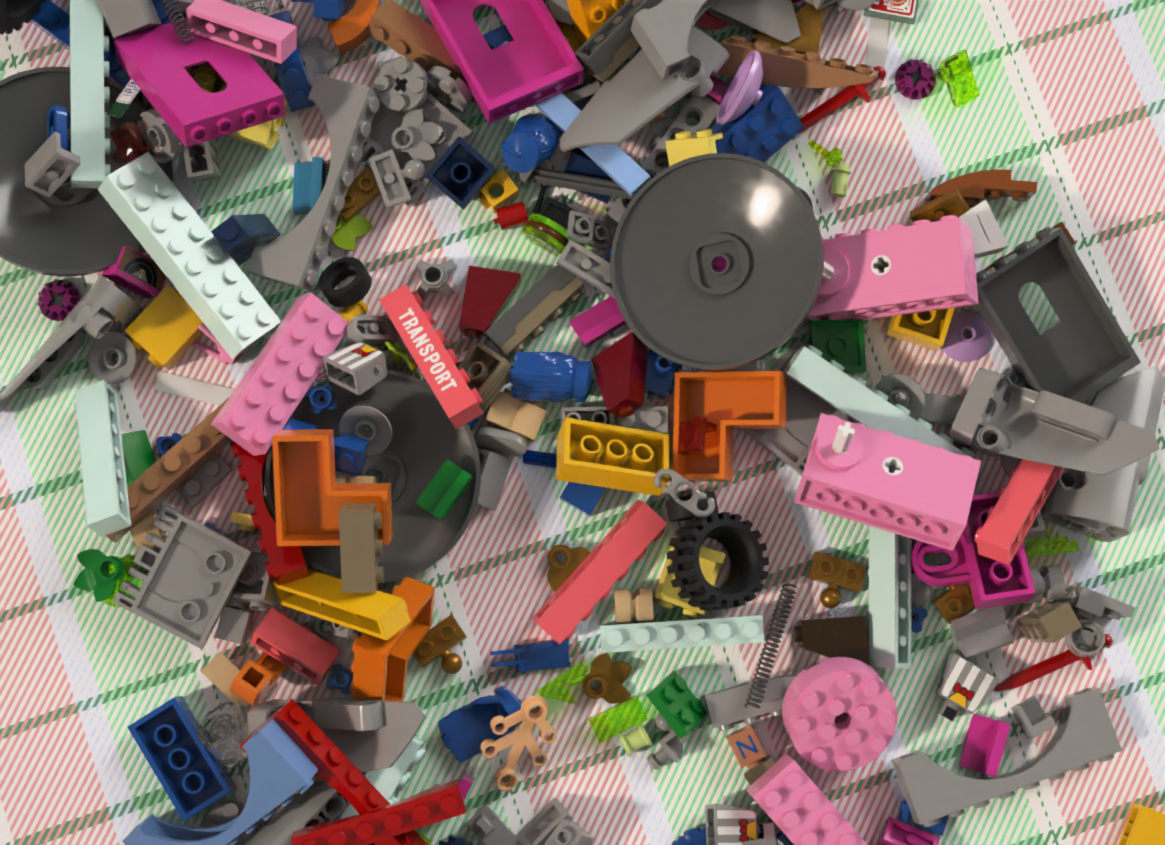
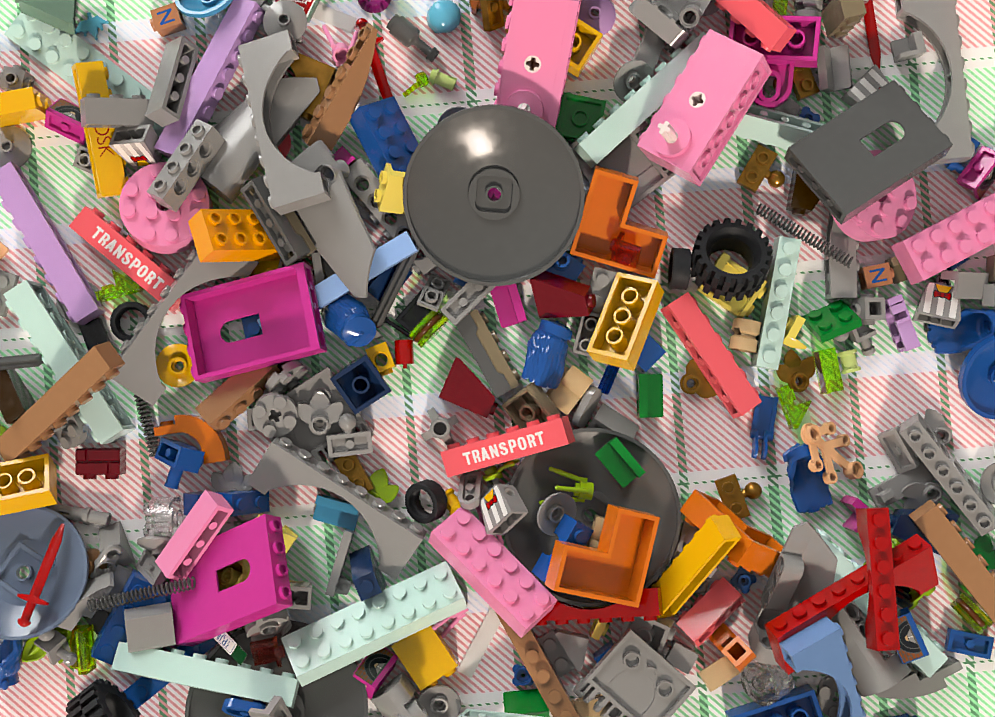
camera: 75 degrees left, 5 degrees up
(217, 496) = (574, 645): none -> light grey slope
(228, 205) = (336, 583): none -> light grey hinge
(315, 394) = (525, 547): blue plate -> none
(360, 547) = (658, 540): dark tan brick -> none
(400, 454) = (583, 489): none -> lime plant
(533, 512) = (649, 395): none -> green panel
(657, 659) = (792, 329): none -> light yellow plate
(677, 481) = (661, 272): light grey piece -> none
(696, 789) = (900, 324): none -> lavender piece
(708, 752) = (869, 308): none -> light grey brick
(742, 89) = (353, 137): lavender dish -> none
(839, 49) = (339, 50): none -> bright pink plant
(857, 666) = (846, 172): none -> dark grey panel
(880, 129) = (408, 35): none -> dark grey piece
(913, 163) = (443, 16): none -> medium azure hair
(984, 745) = (922, 89): dark pink panel -> none

